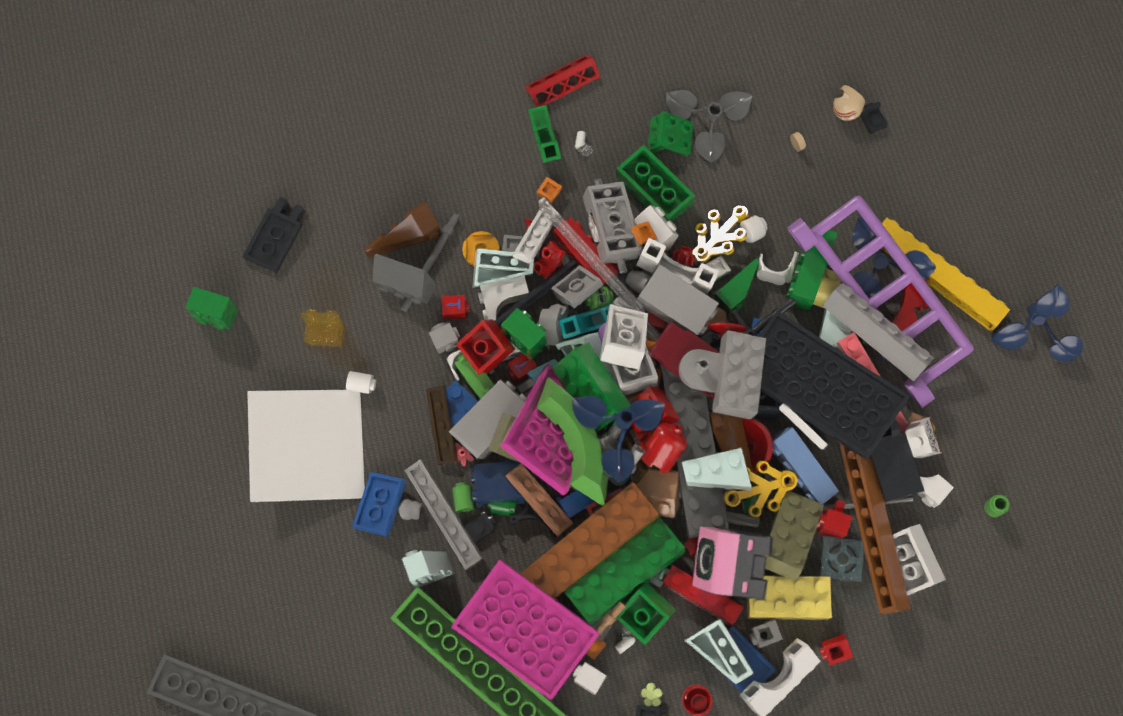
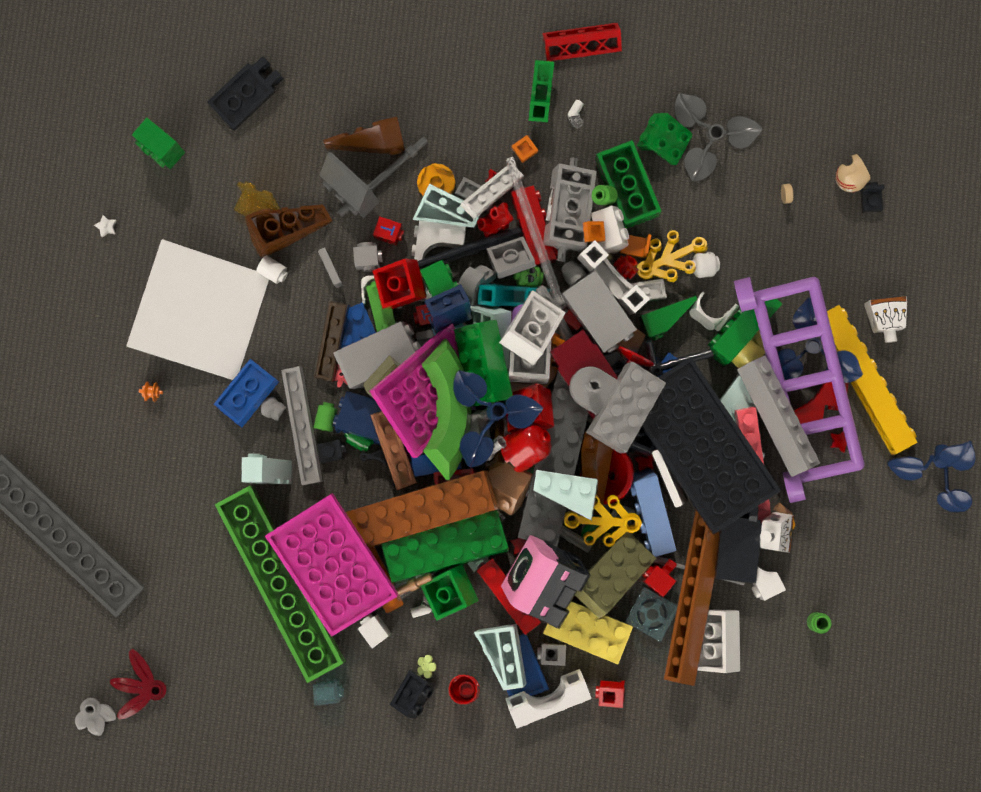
camera: 20 degrees right, 10 degrees up
(188, 403) = (106, 226): none -> white piece
(287, 538) = (150, 391): none -> orange wheel
(353, 342) = (282, 227): none -> reddish brown wedge
(414, 360) = (330, 268): none -> light grey tile
(540, 349) = (448, 308): none -> dark blue panel
(639, 199) = (604, 195): none -> bright green brick
(687, 235) = (637, 246): none -> orange bracket
(776, 423) = (645, 462): none -> red piece
(932, 212) = (887, 316): none -> torso
(940, 337) = (839, 441): none -> red piece

